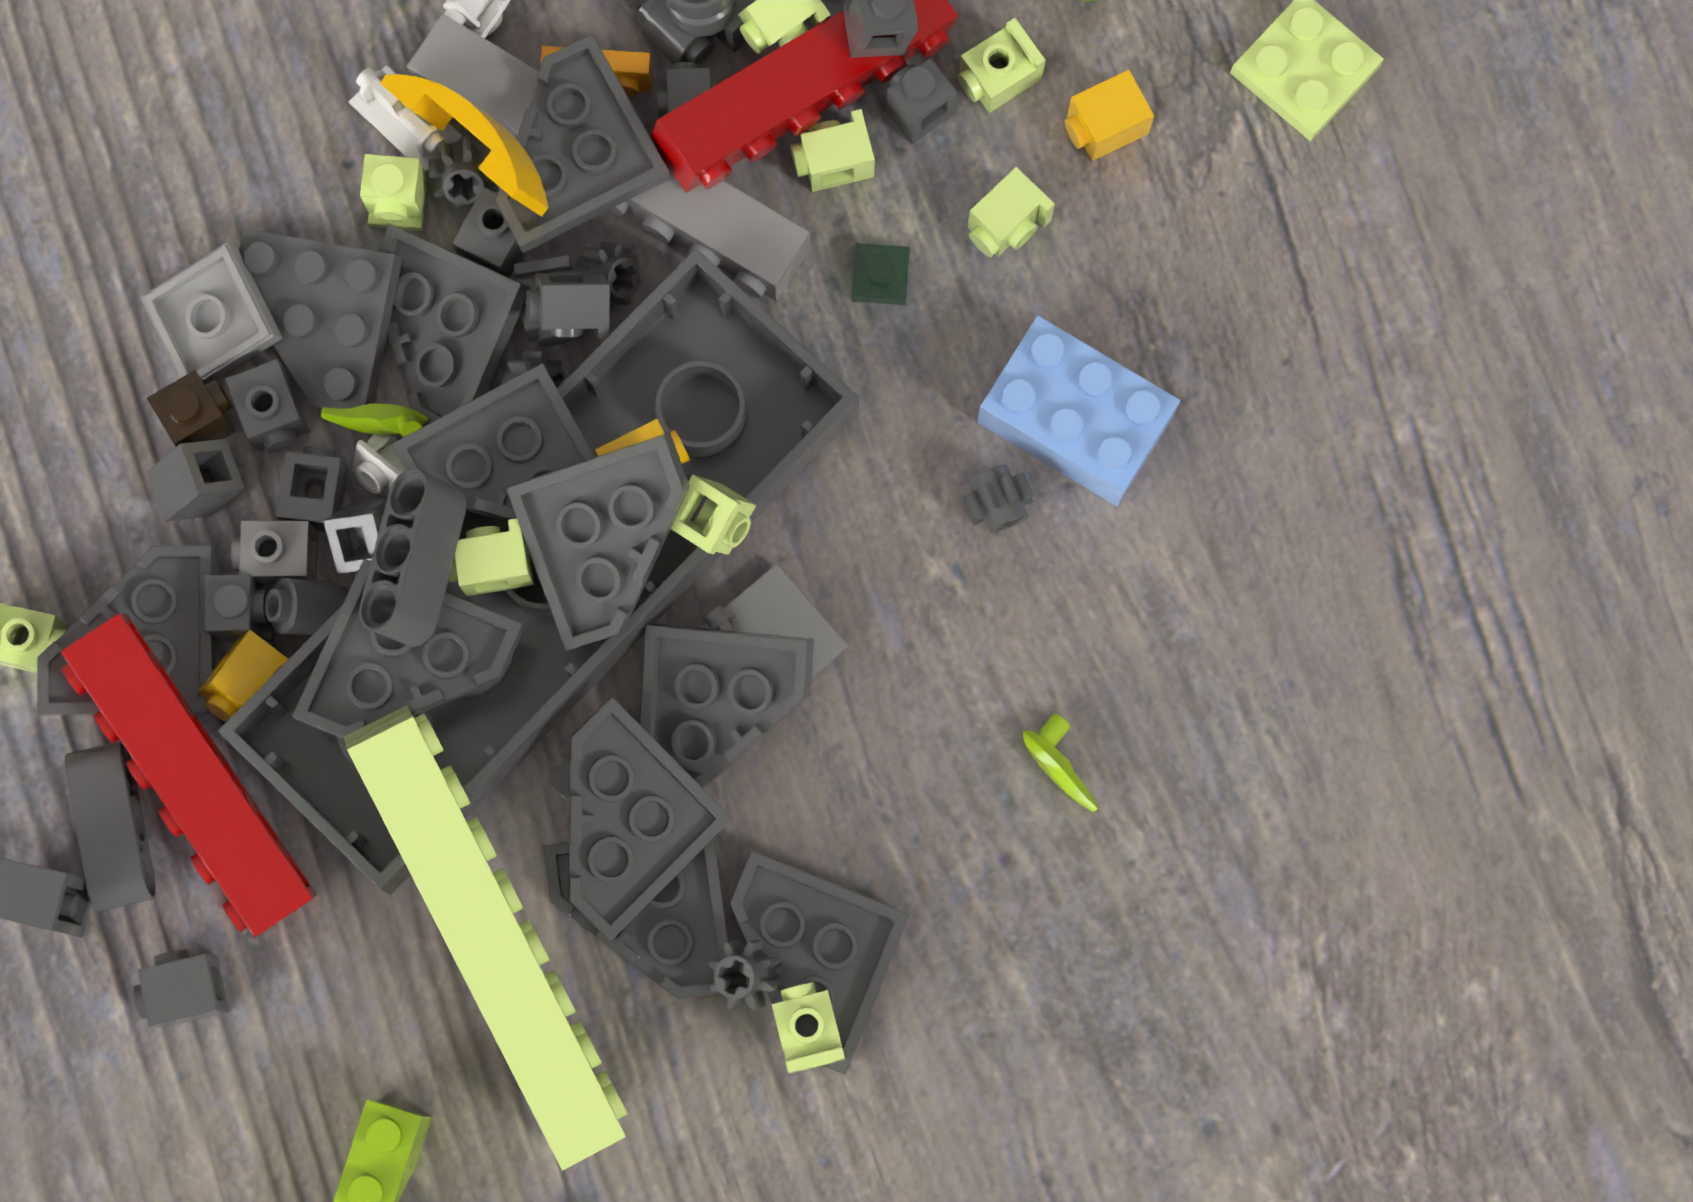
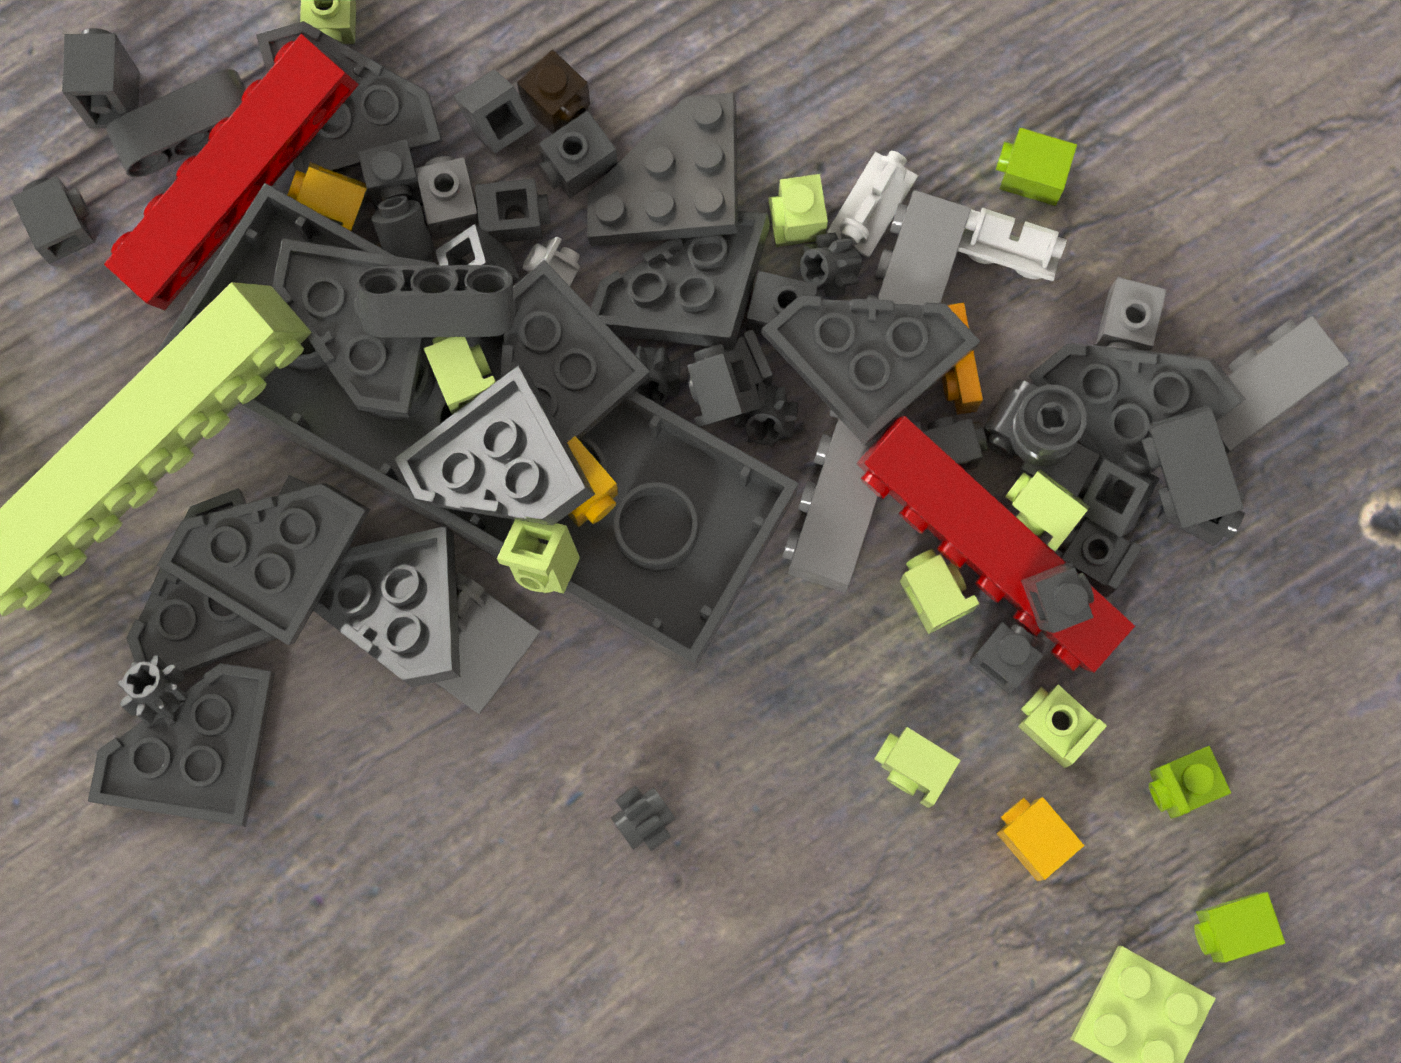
camera: 75 degrees right, 0 degrees up
(211, 315) = (647, 87): light grey tile -> none
(377, 419) = (586, 253): lime bar -> none
(505, 164) = (829, 297): yellow slope -> none
(811, 1051) = (134, 762): yellowish green brick -> none
(880, 274) = (834, 661): clear green plate -> none
(1055, 764) = (408, 932): lime bar -> none
(1077, 410) = (743, 872): light blue brick -> none

